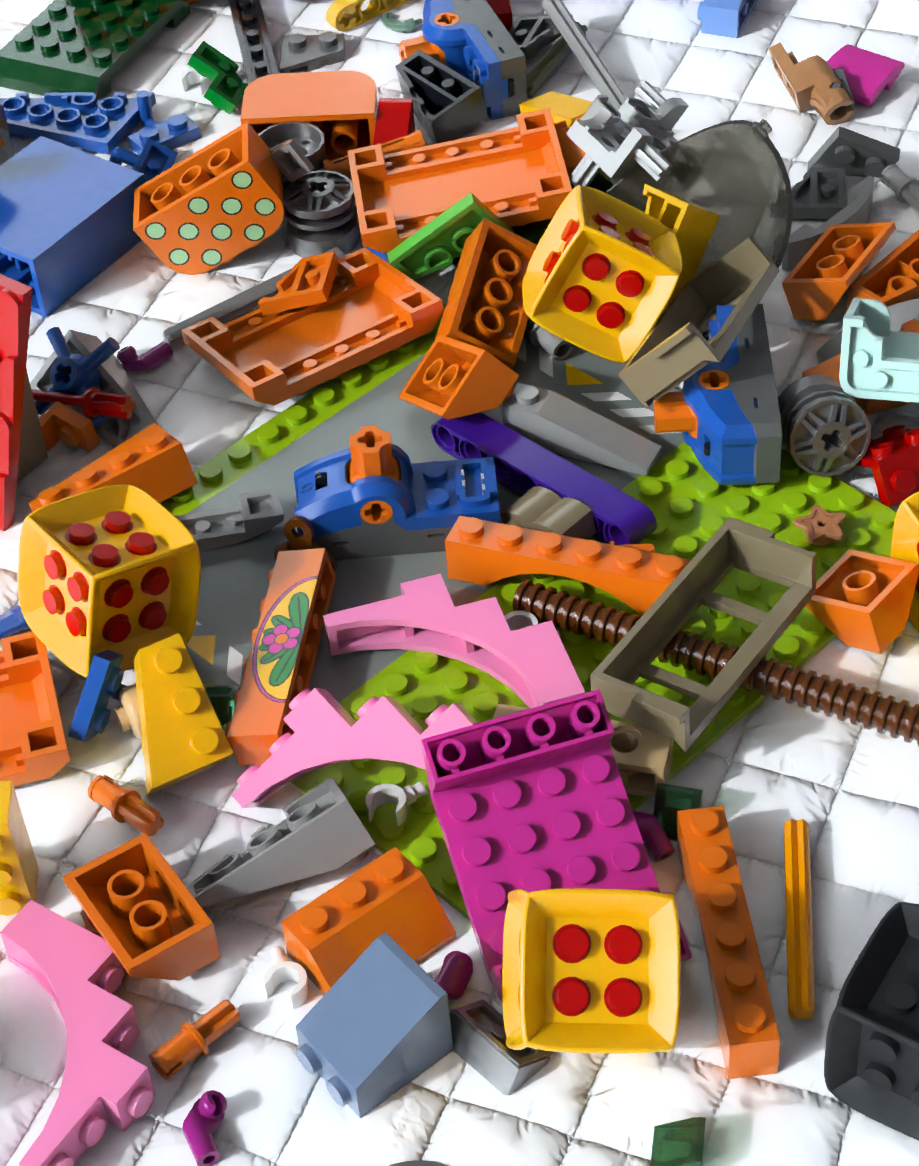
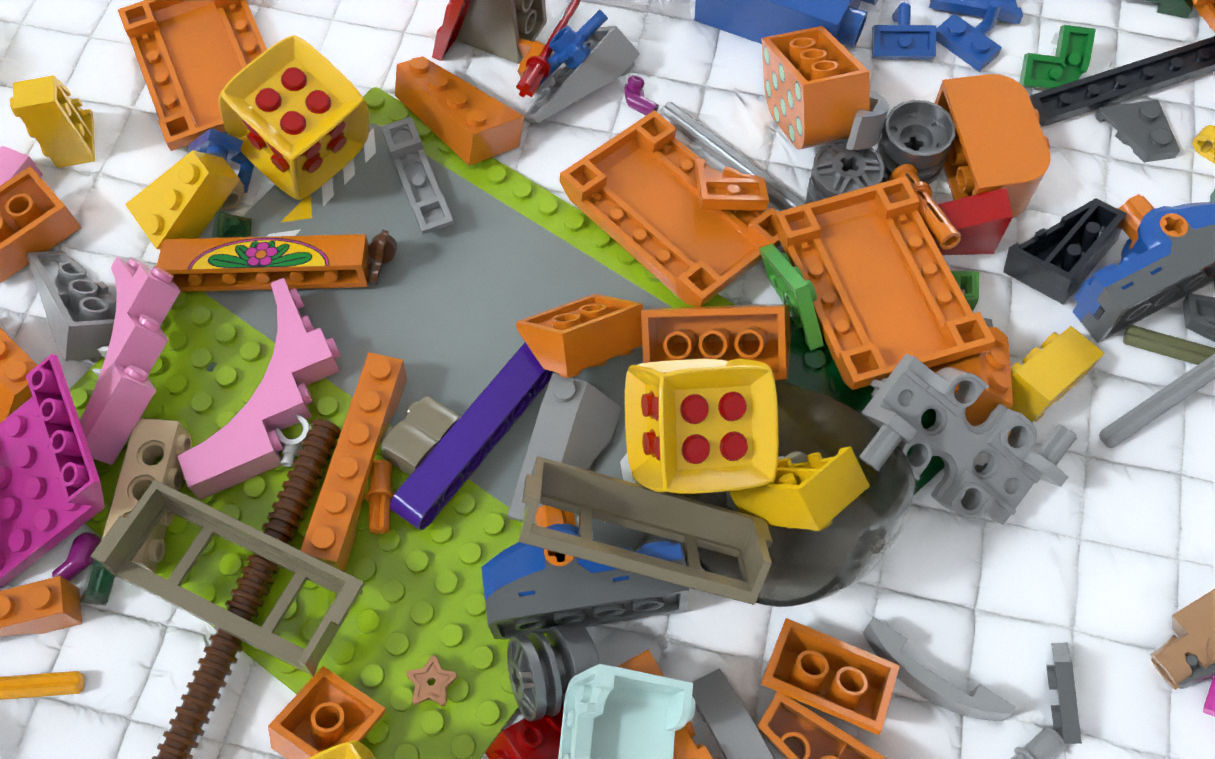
camera: 80 degrees right, 20 degrees up
(125, 805) = (117, 211): orange axle -> none
(382, 505) = (434, 314): blue piece -> none
(819, 193) = (993, 656): dark grey wing -> none

